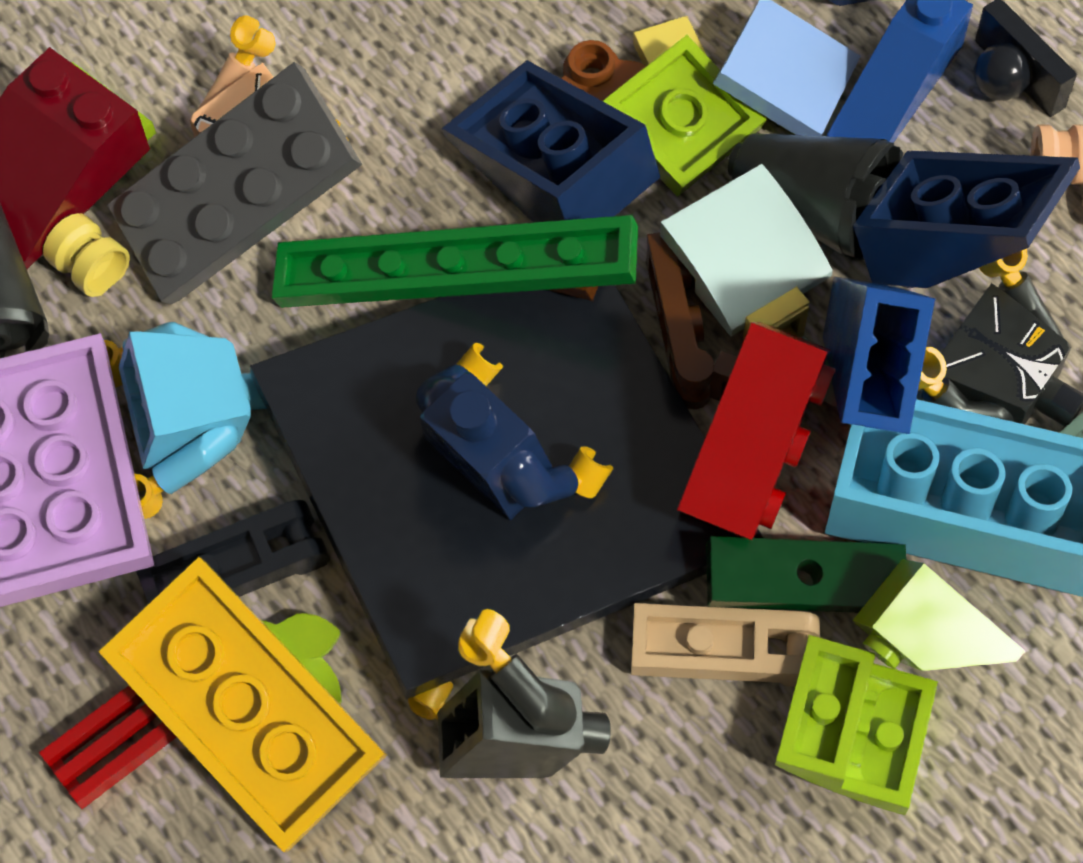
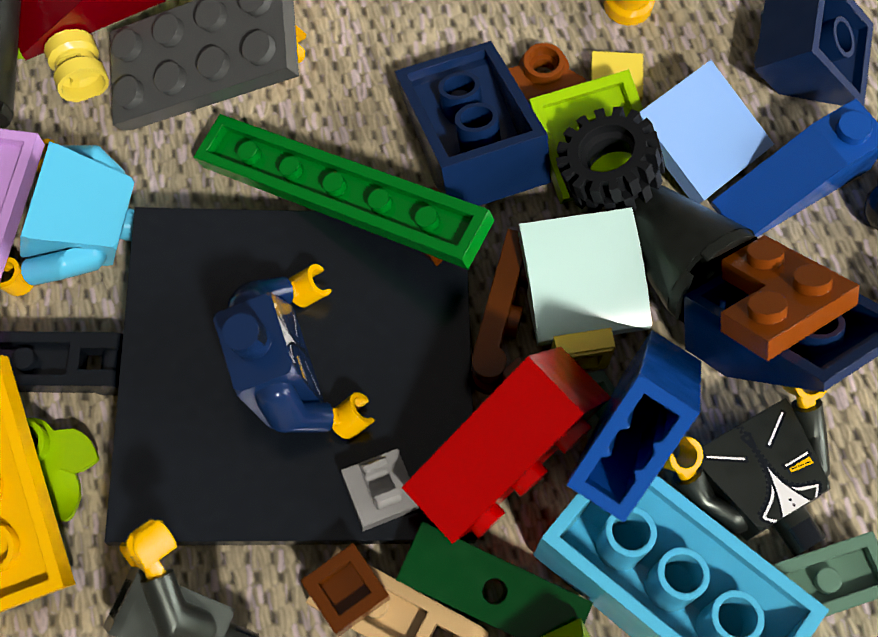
camera: 25 degrees right, 5 degrees up
(650, 530) = (377, 490): none -> light grey tile
(669, 629) = (345, 589): none -> reddish brown plate
(706, 103) = (606, 136): none -> black tyre
(949, 182) = (785, 298): none -> dark orange plate

